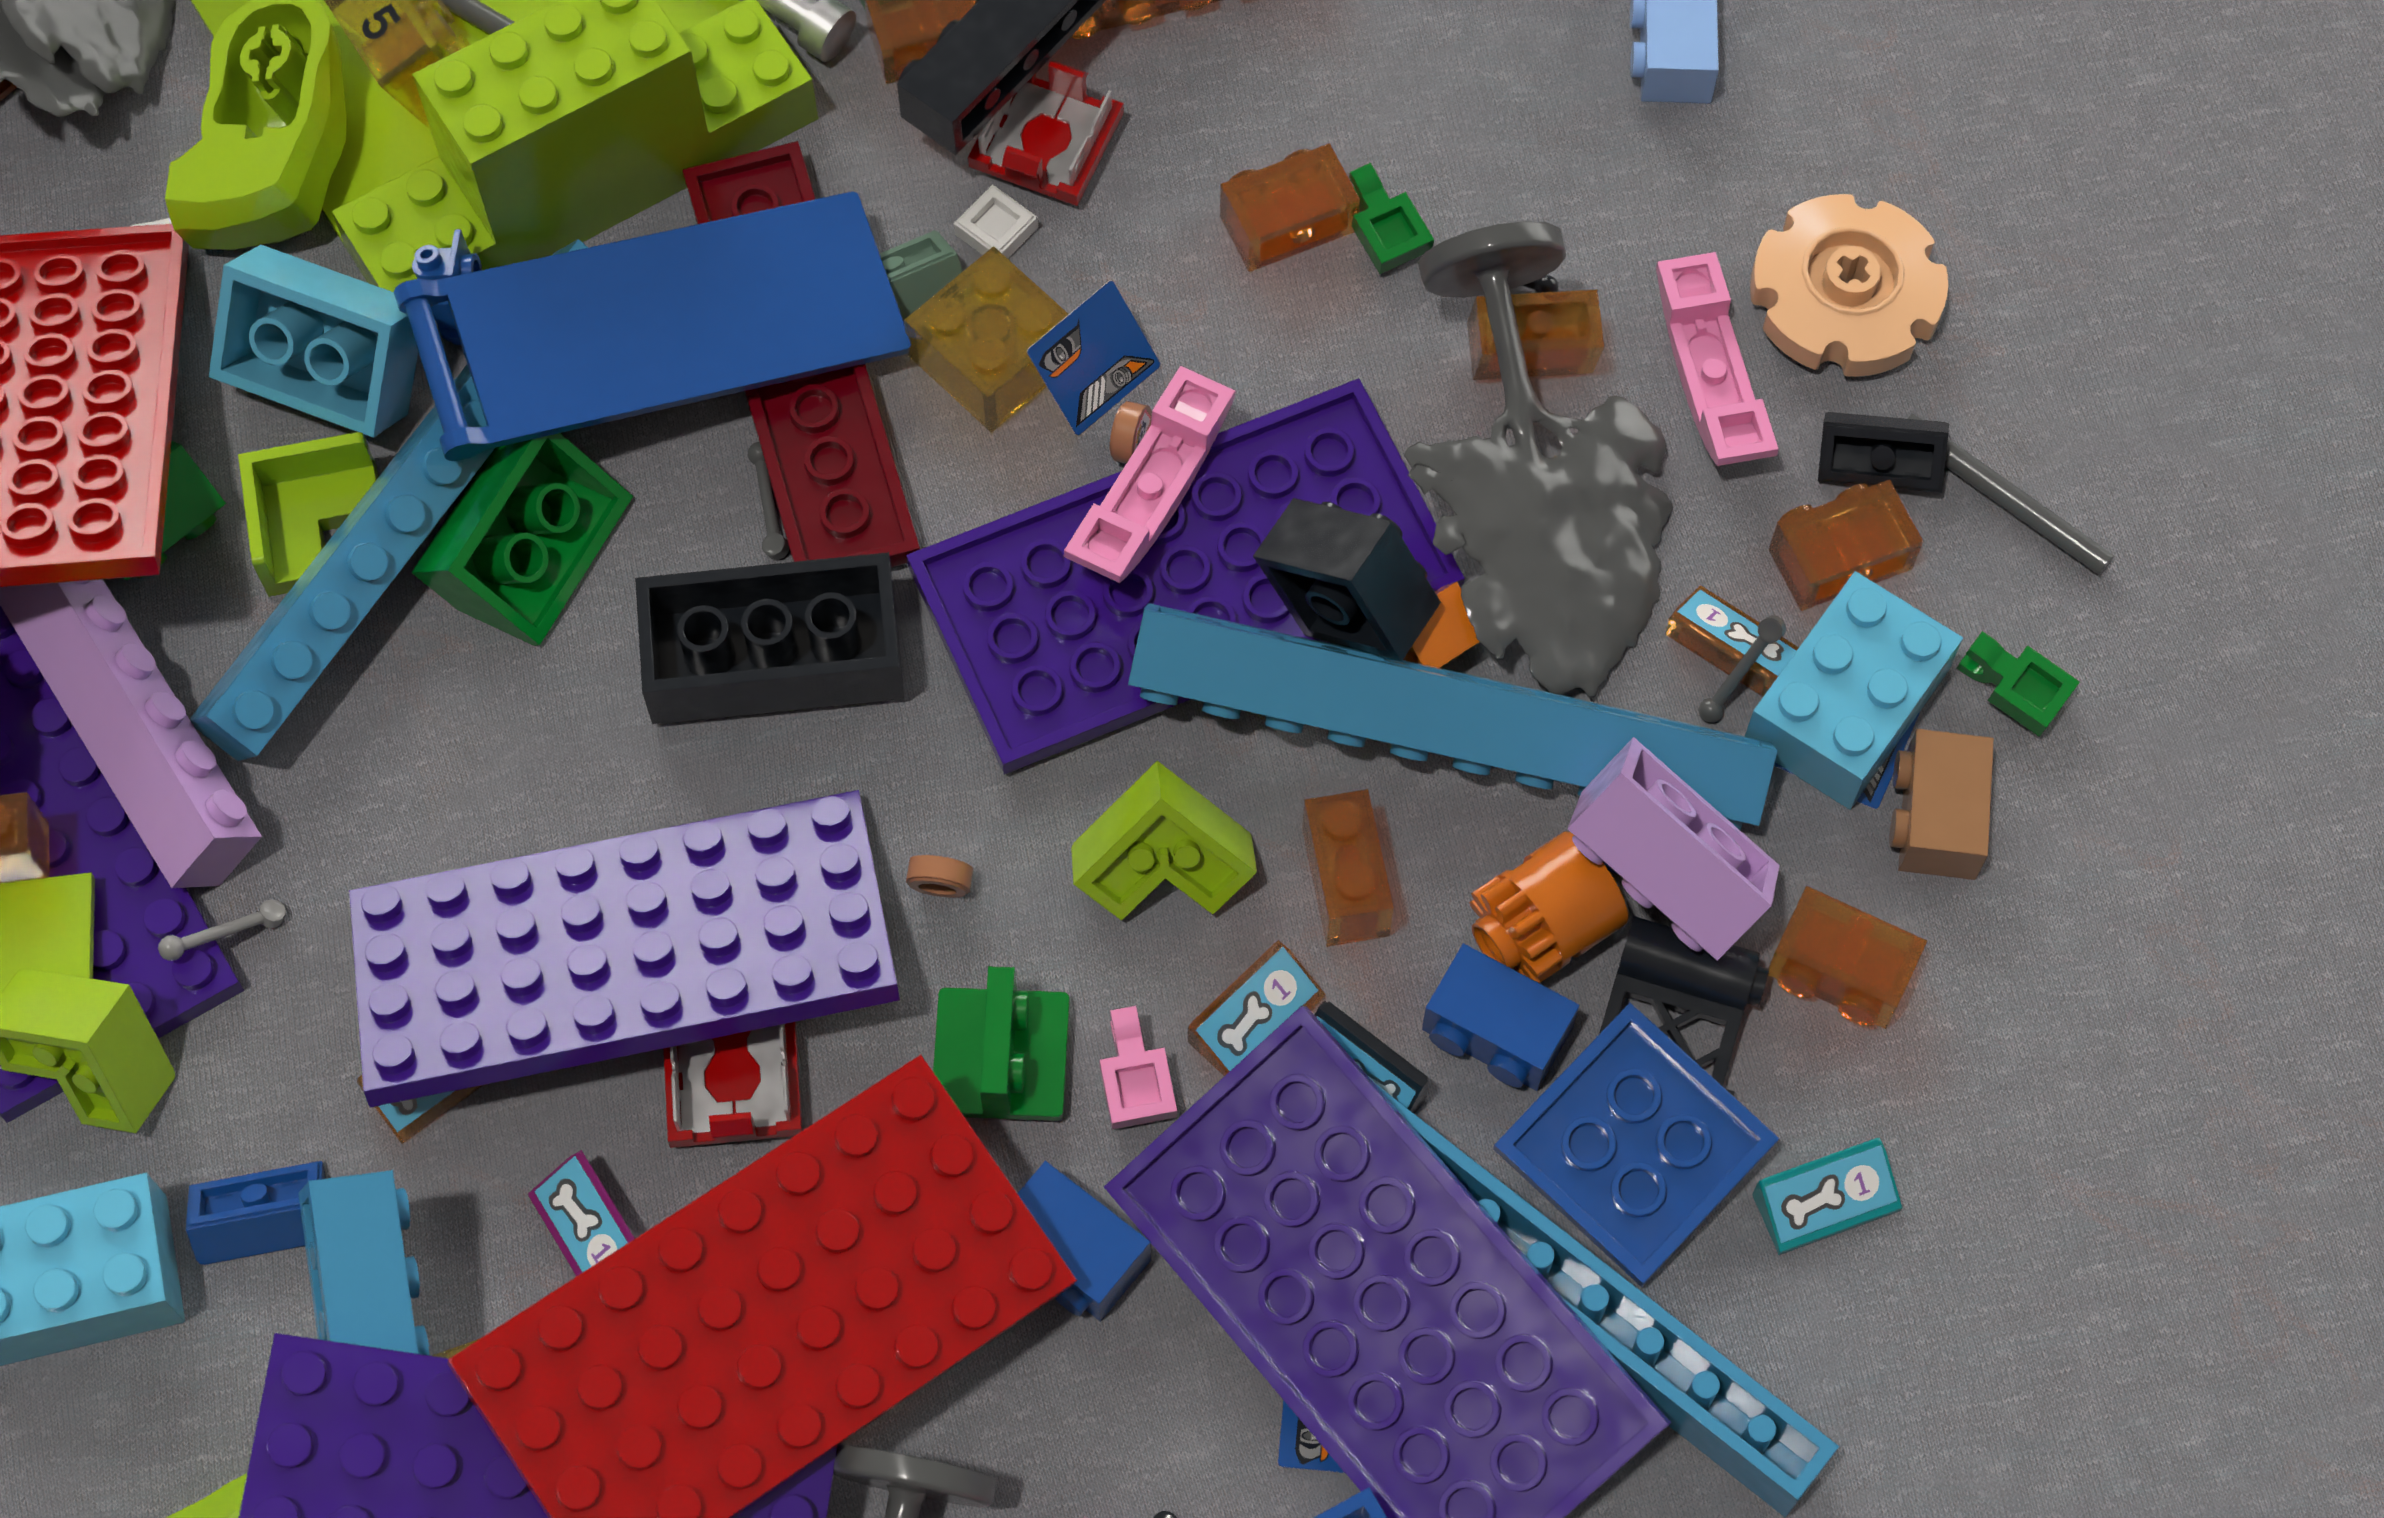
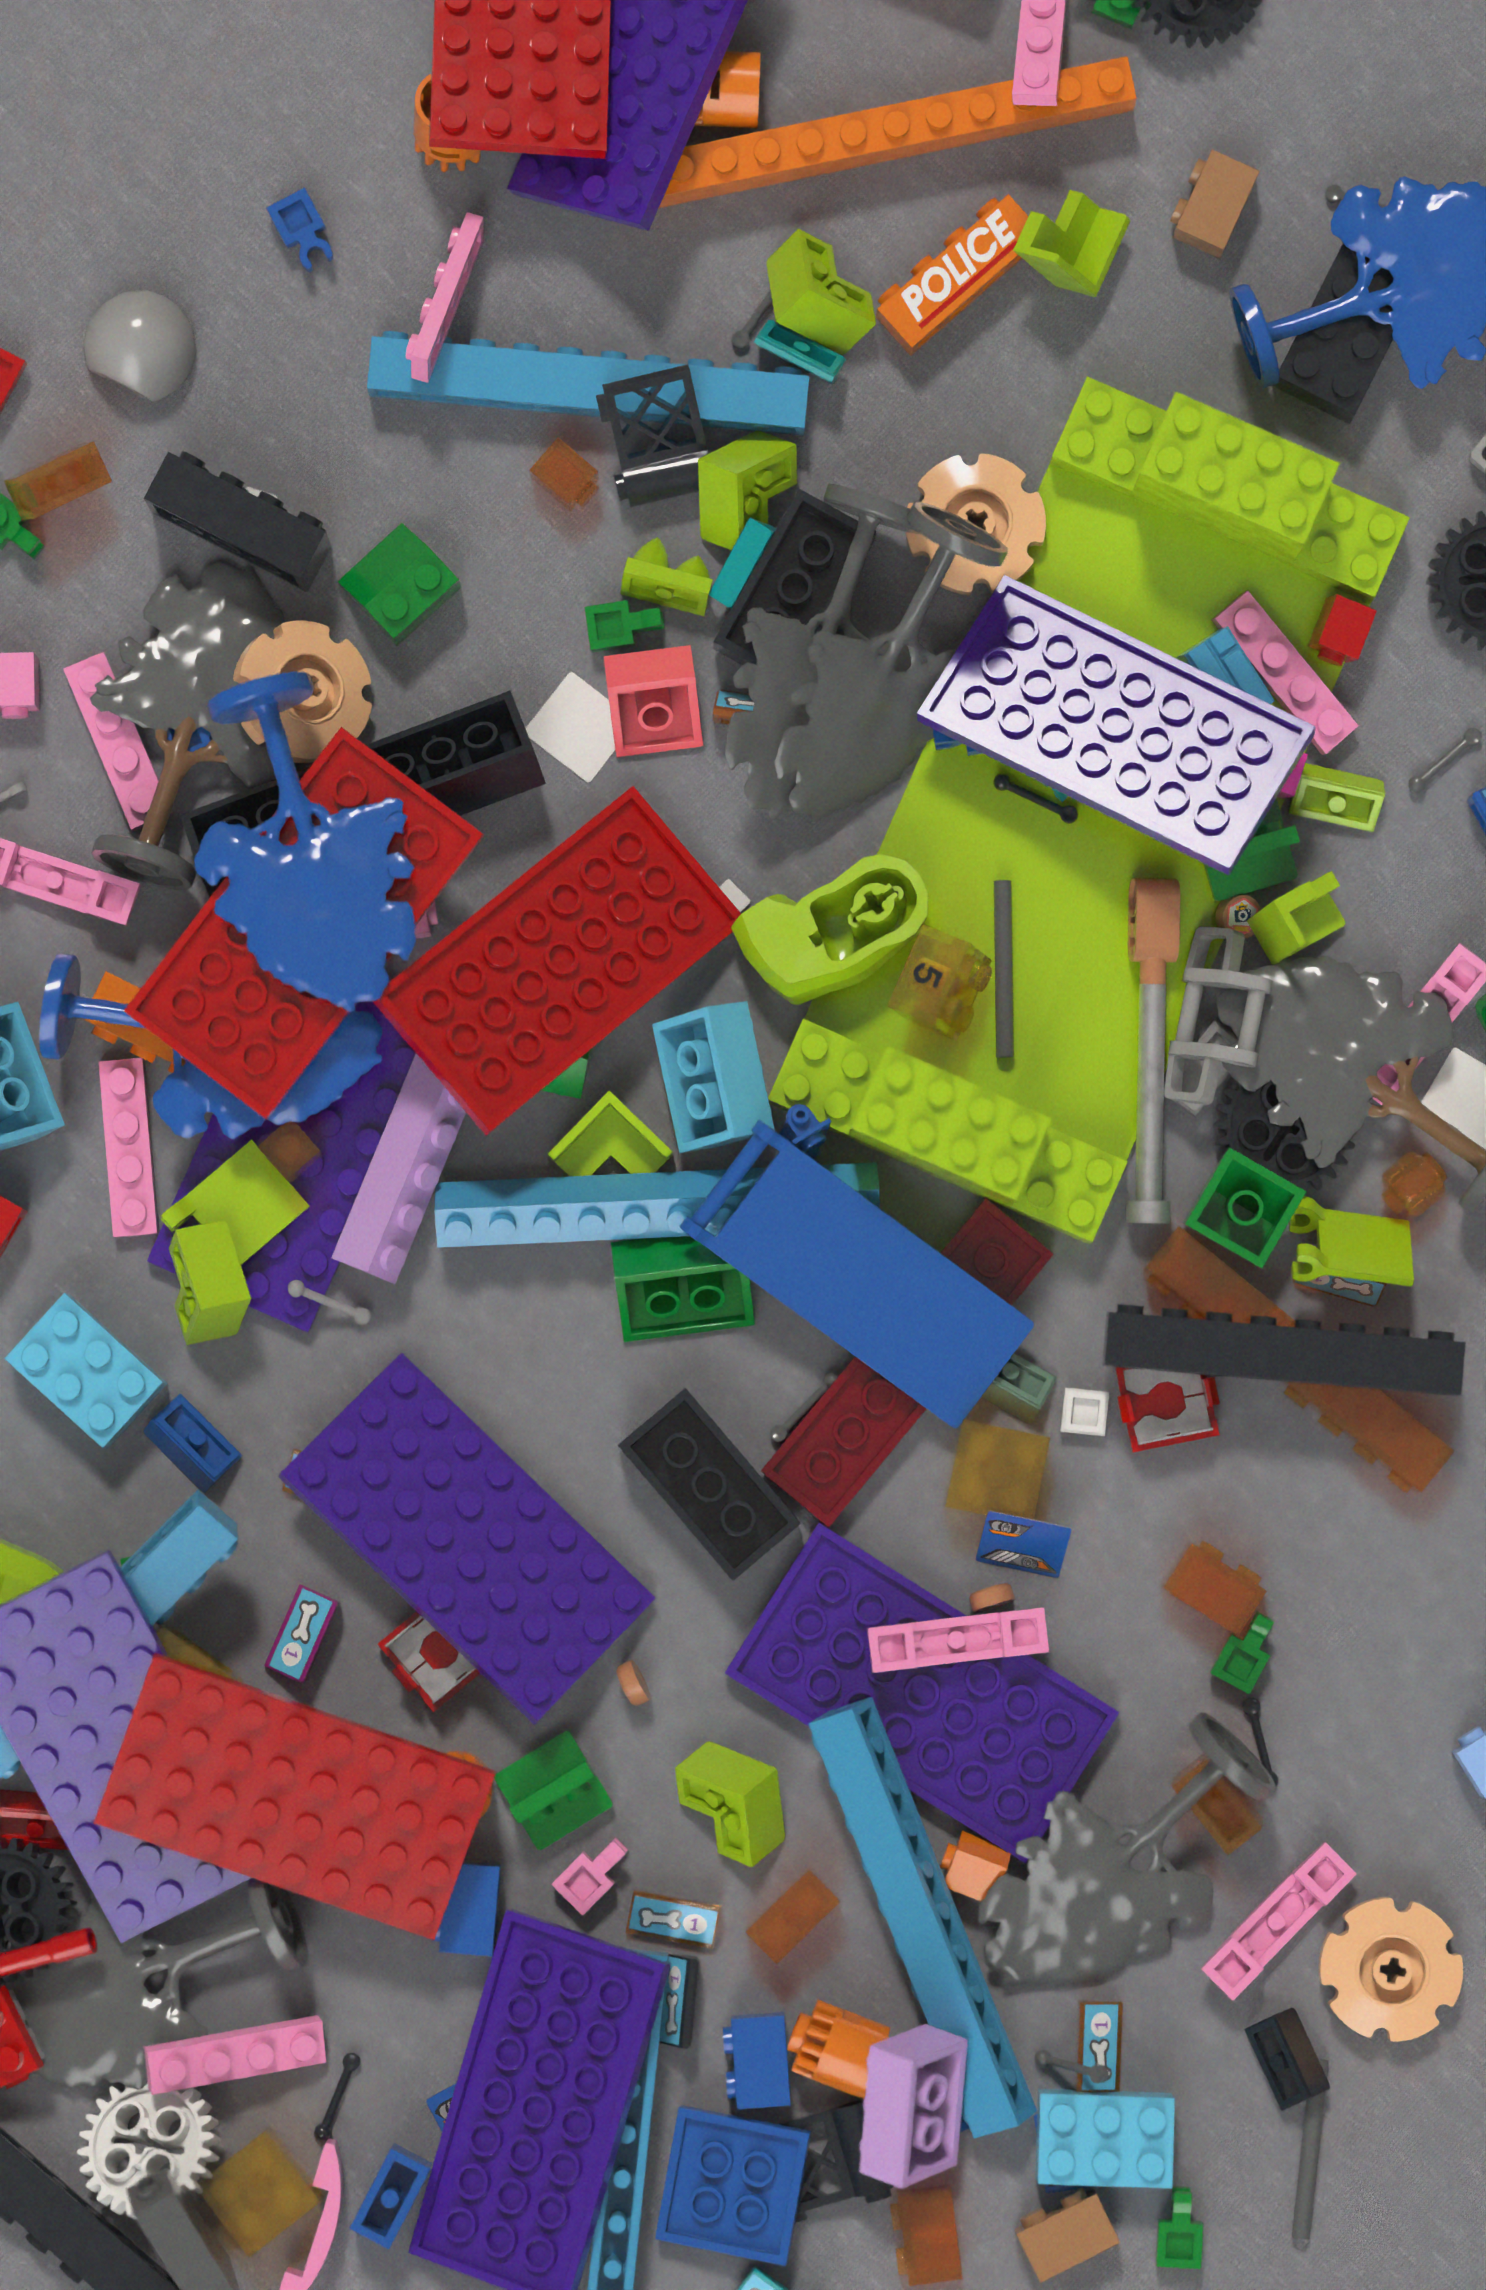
camera: 55 degrees right, 20 degrees up
(1348, 578) = (956, 1811): black brick -> none
(1856, 532) = (1202, 2074): clear orange brick -> none

